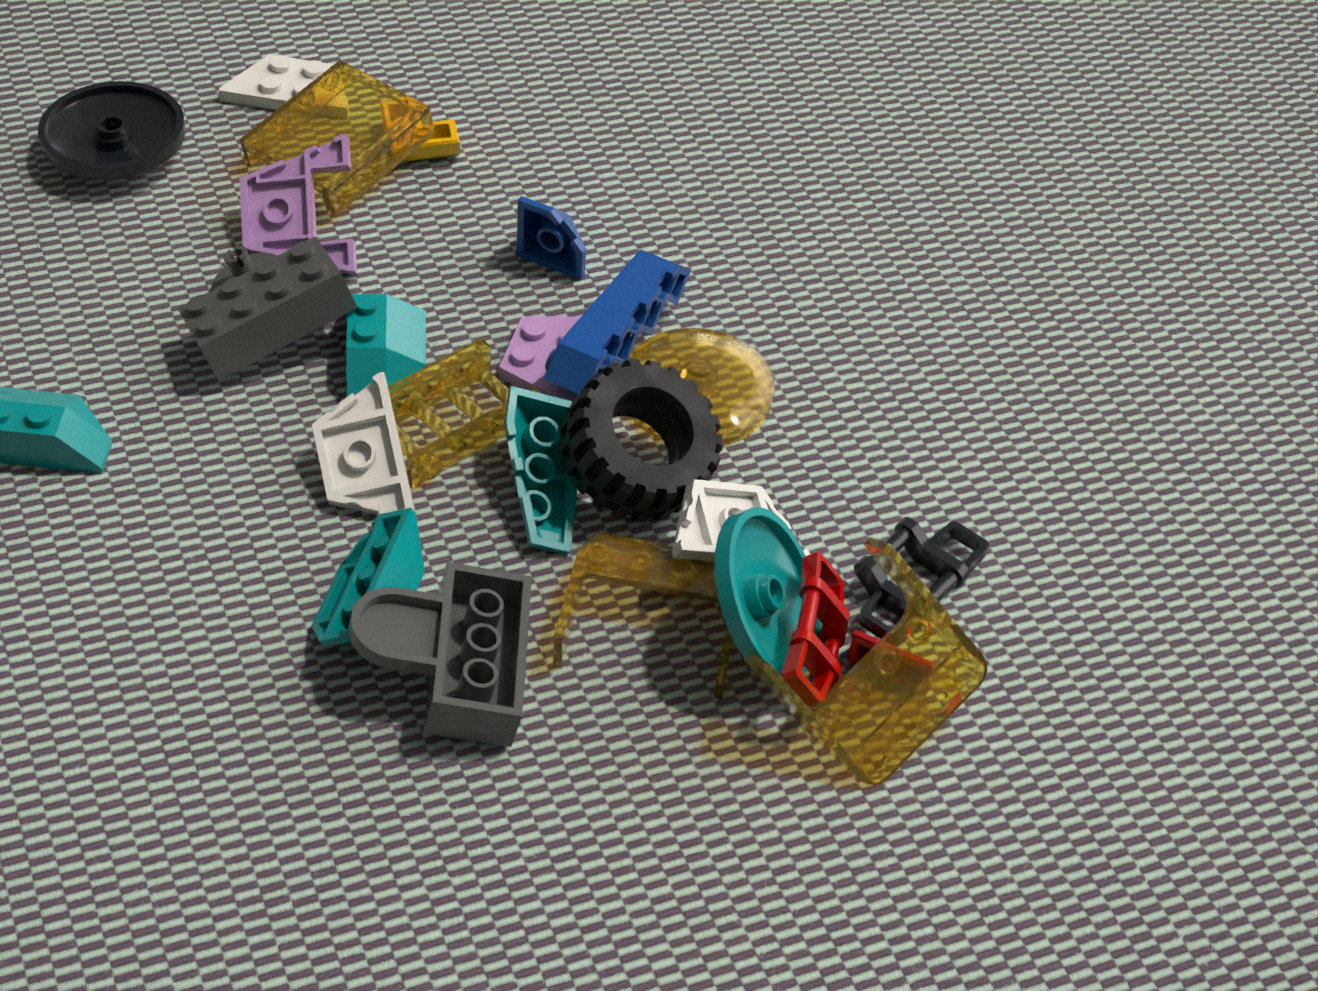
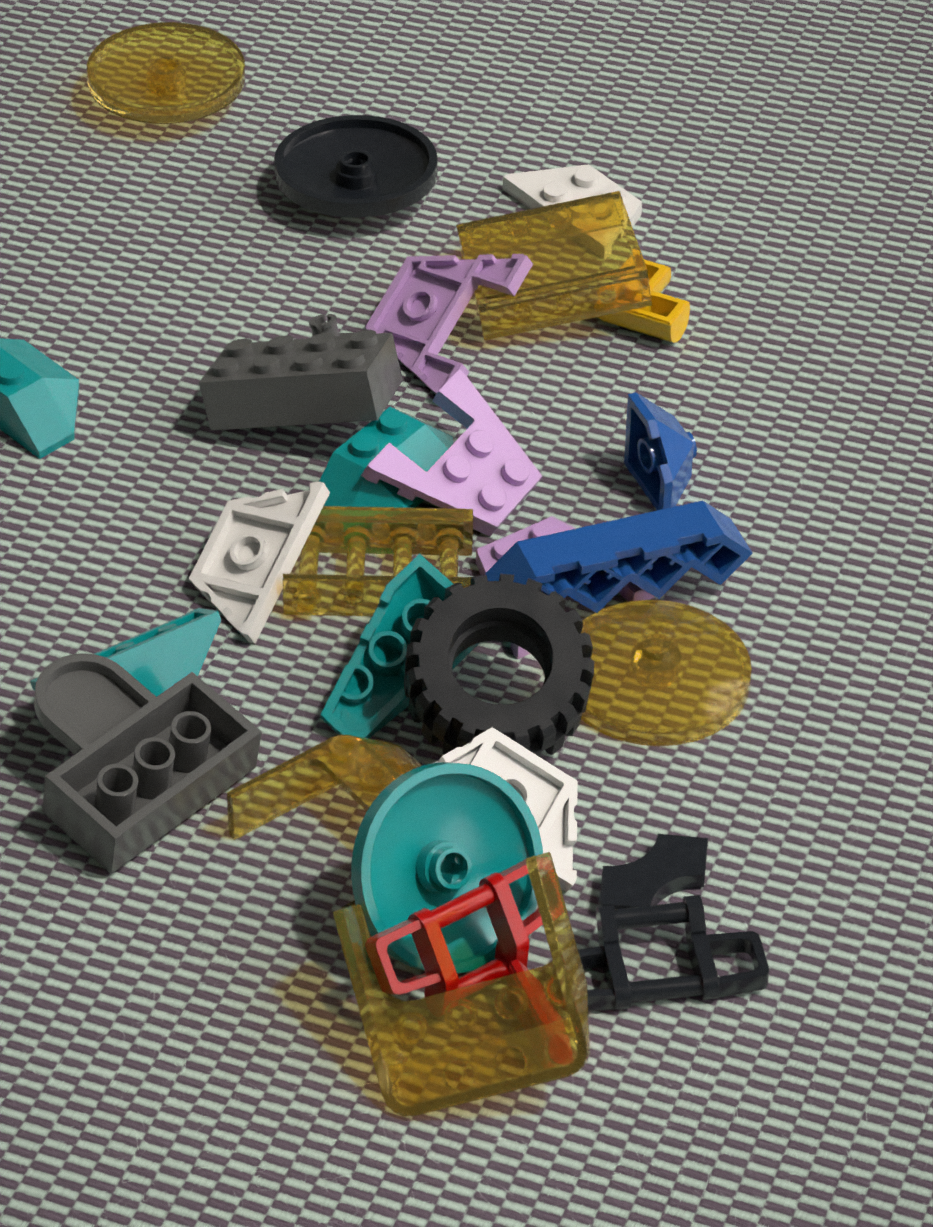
camera: 45 degrees right, 5 degrees down
(446, 309) = (478, 472): none -> lavender wing
(849, 511) = (669, 867): none -> black tile

